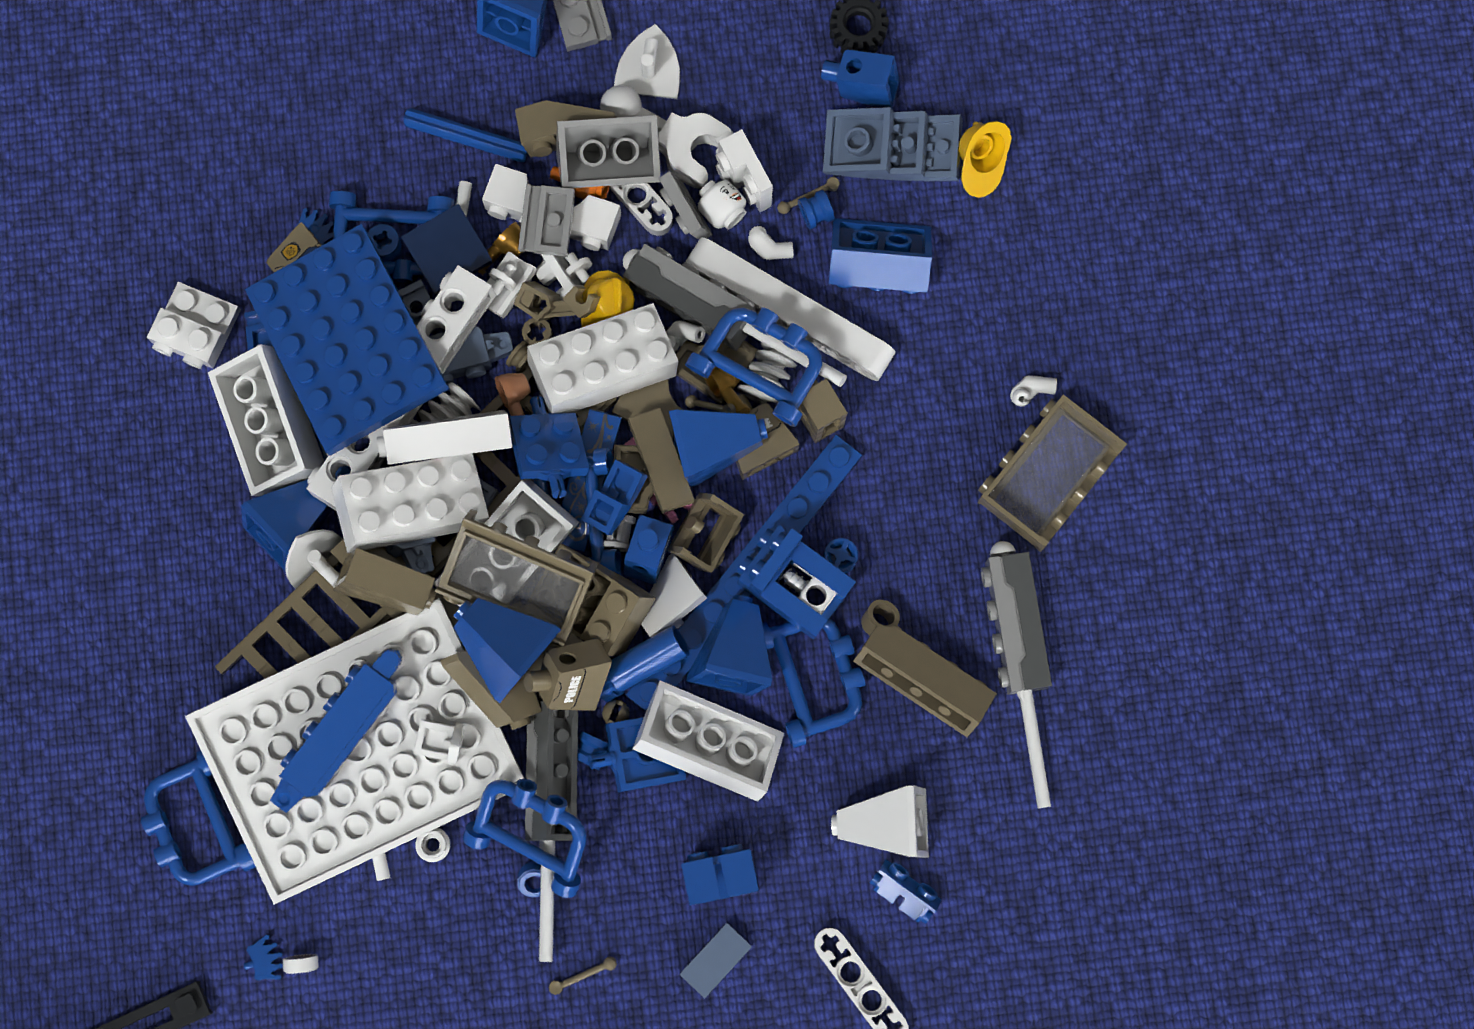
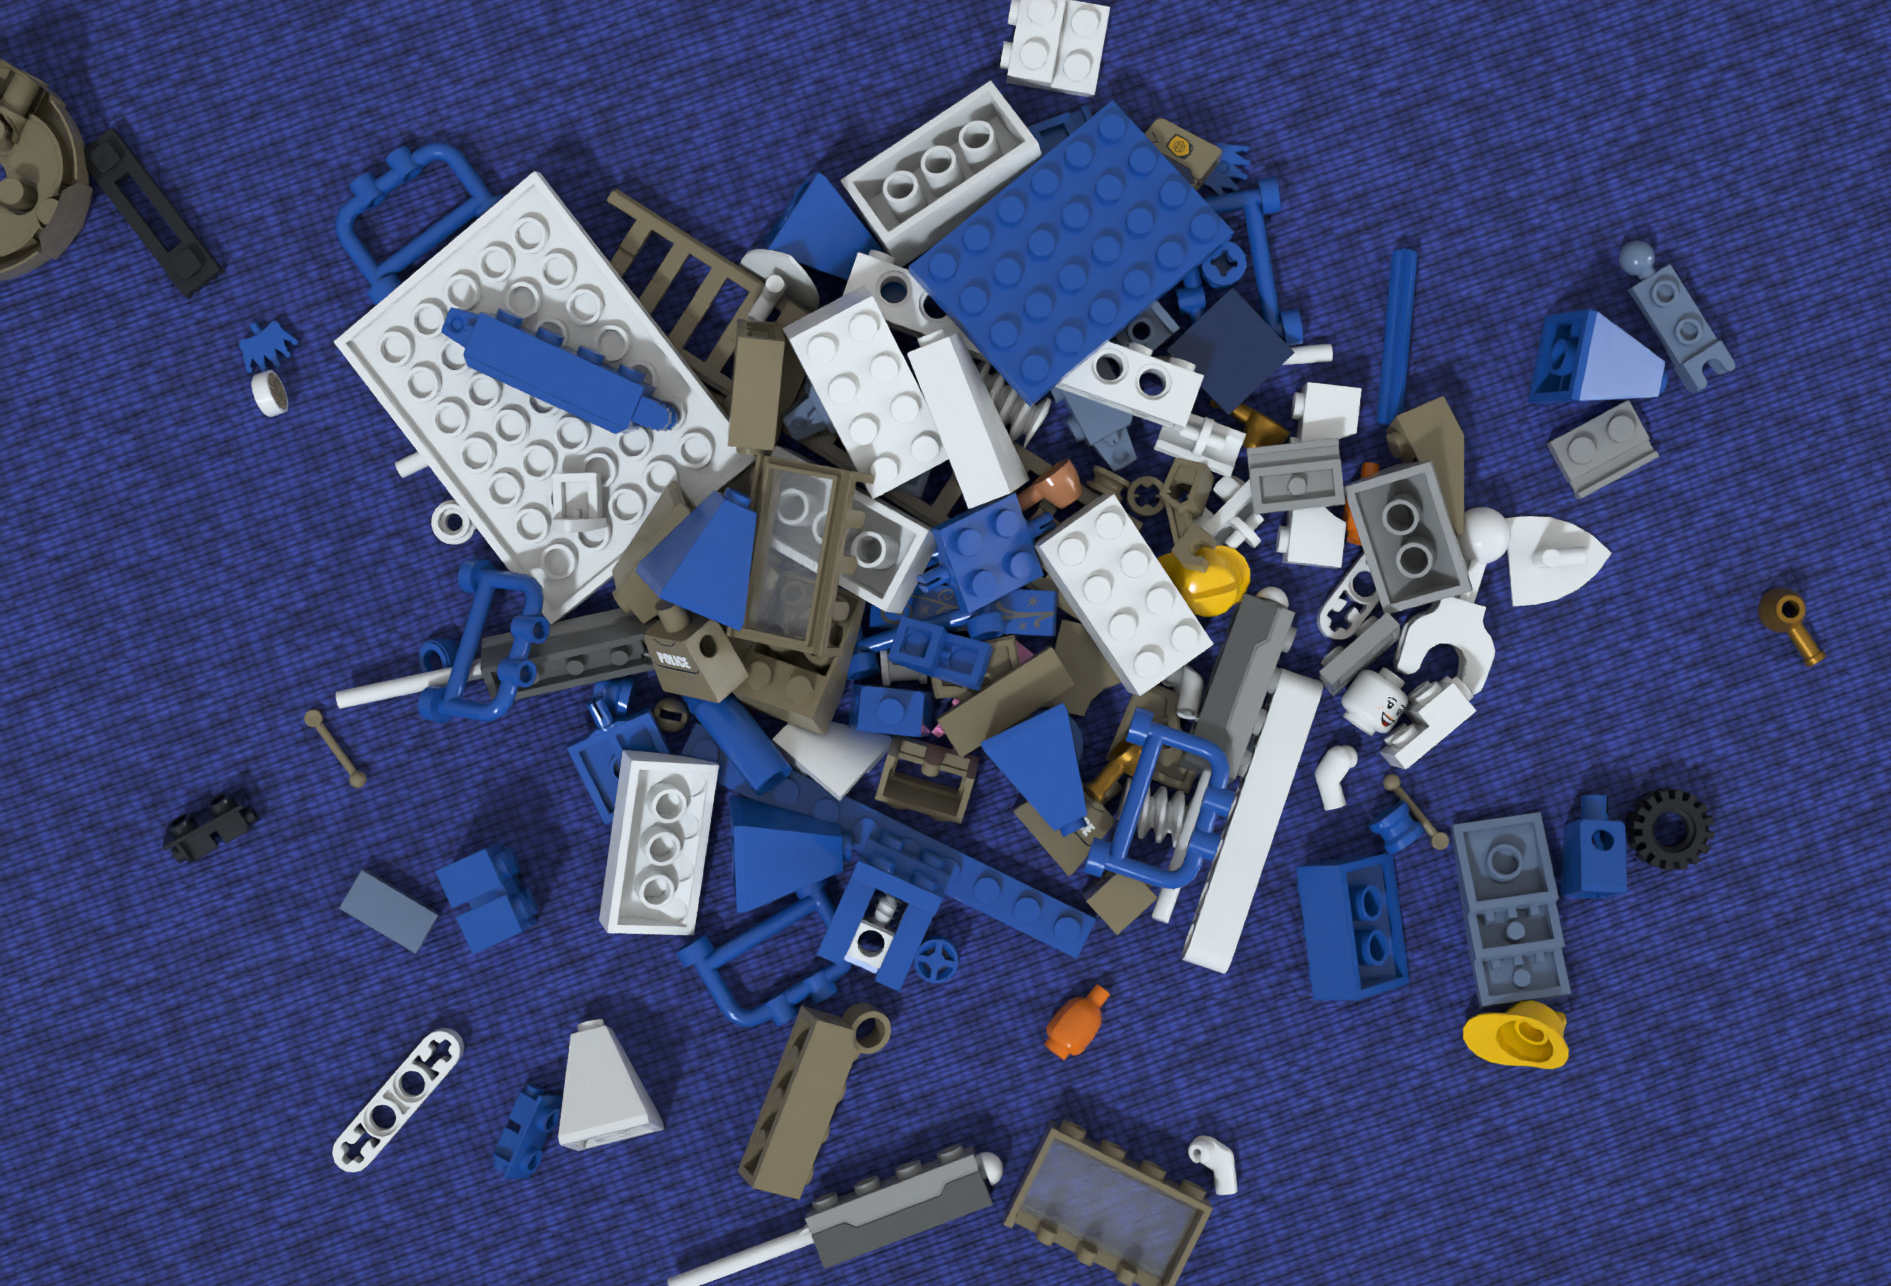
camera: 85 degrees right, 10 degrees up
(692, 401) = (1091, 774): dark tan hinge -> none
(910, 466) = (1076, 1024): none -> orange plant

